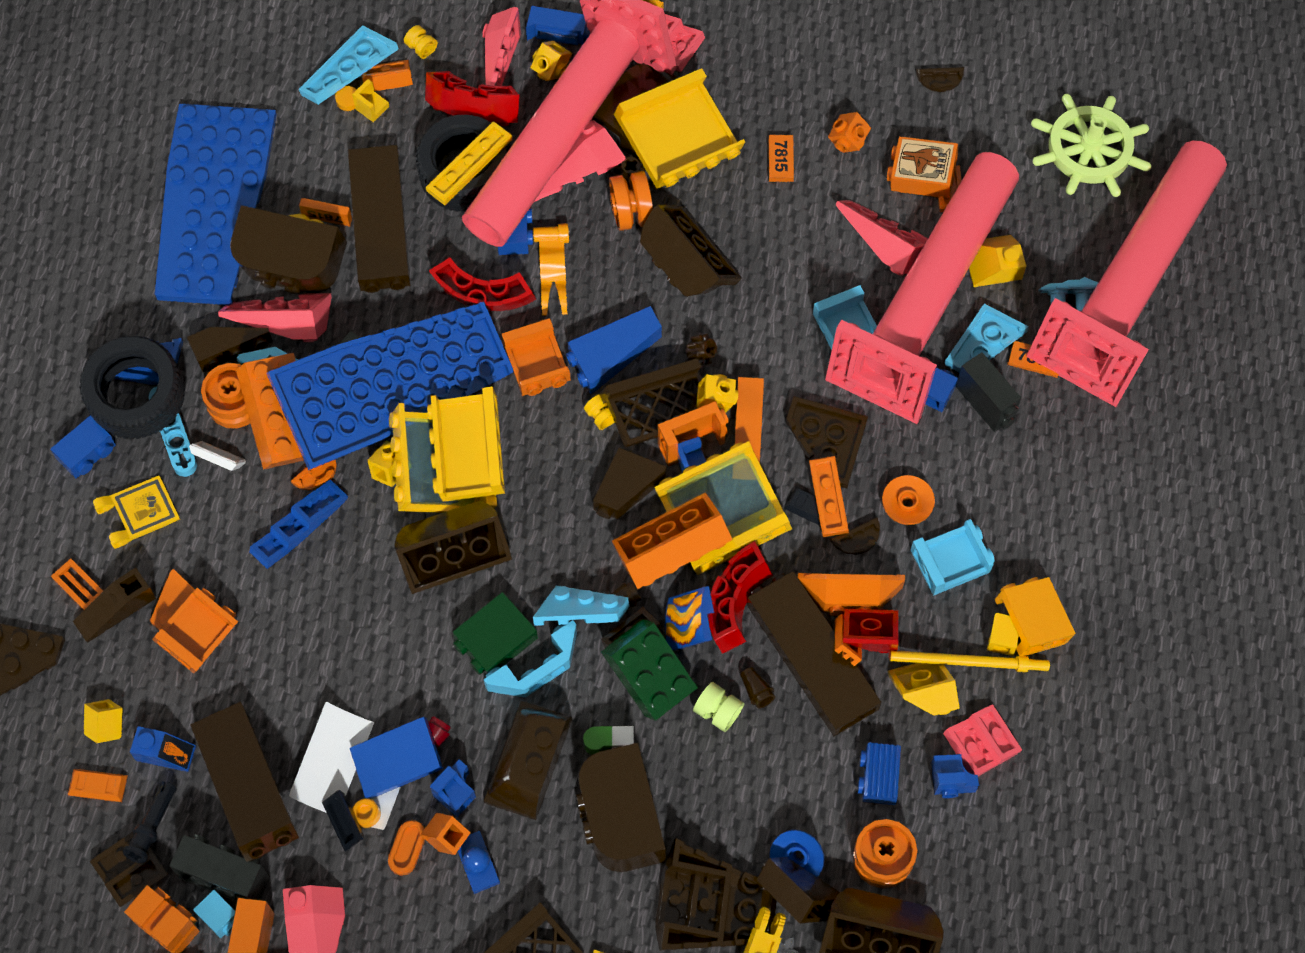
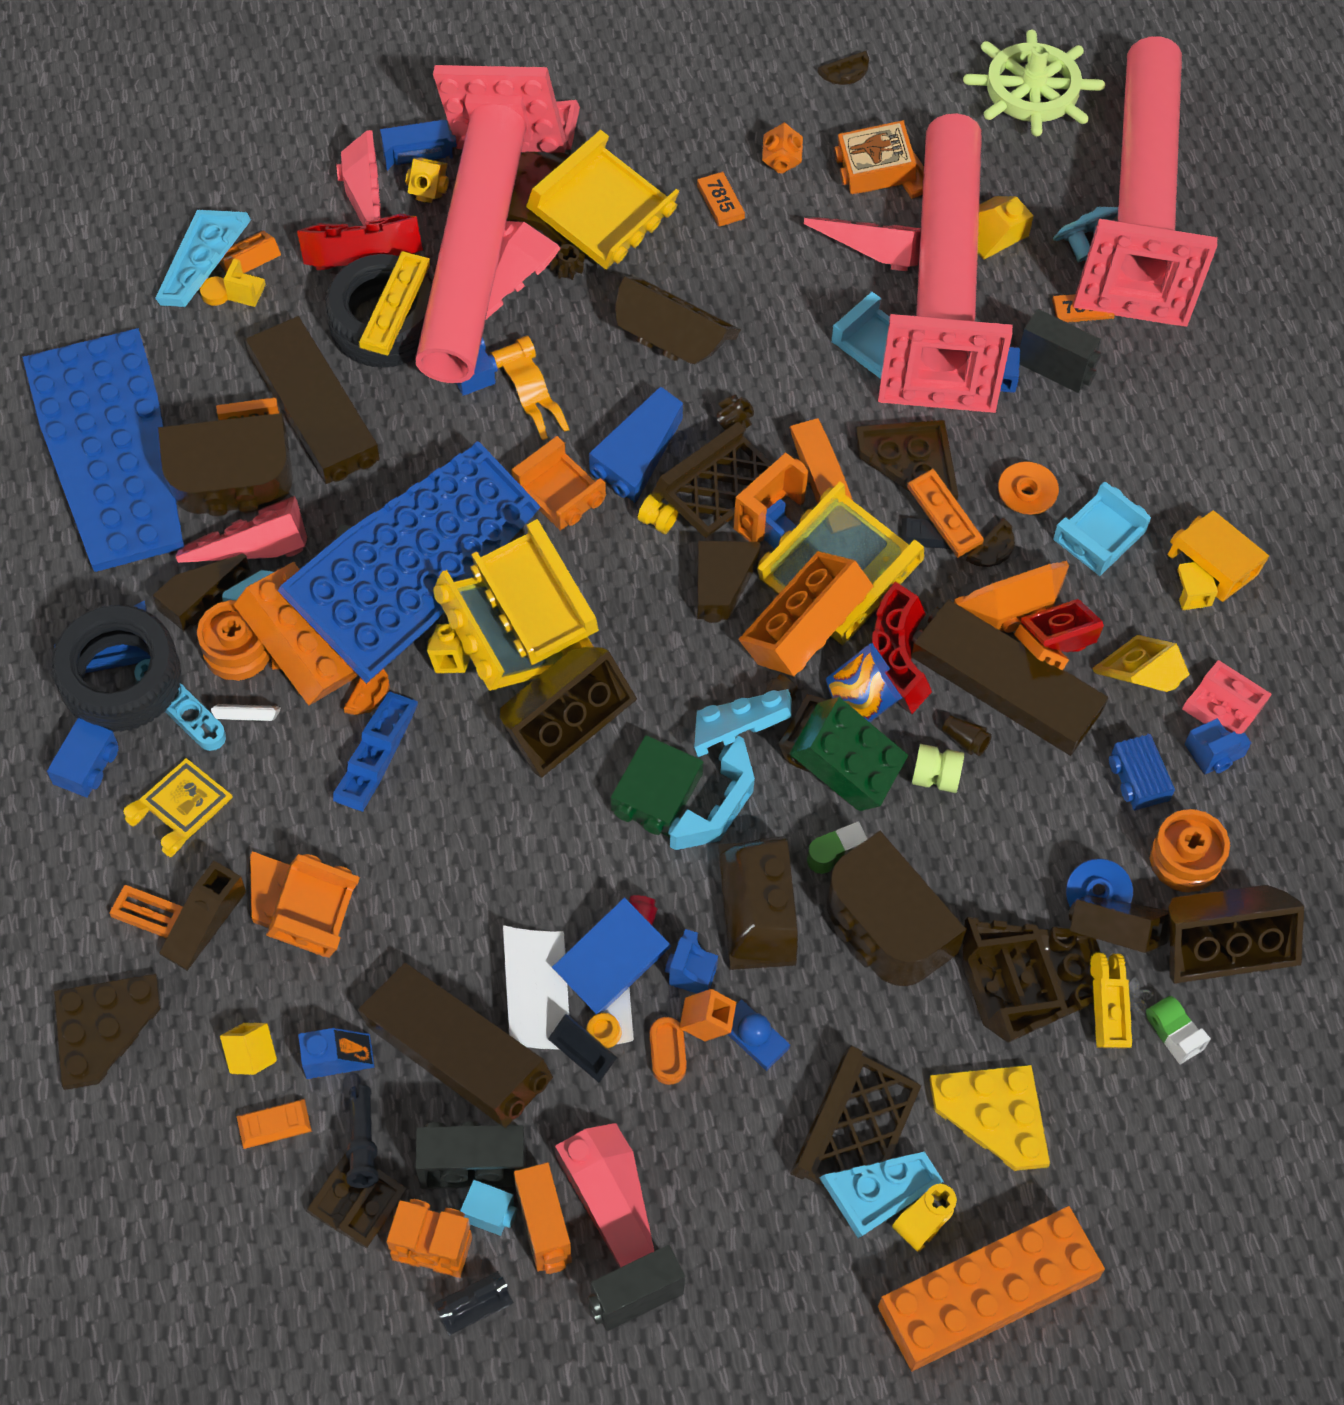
camera: 25 degrees left, 5 degrees down
(422, 43) = (272, 206): yellow wheel -> none
(496, 294) = (448, 438): red brick -> none
(629, 201) = (586, 287): orange wheel -> none
(717, 389) = (773, 443): yellow brick -> none
(988, 333) = (1022, 296): medium azure wing -> none
(1020, 664) = (1223, 610): yellow bar -> none

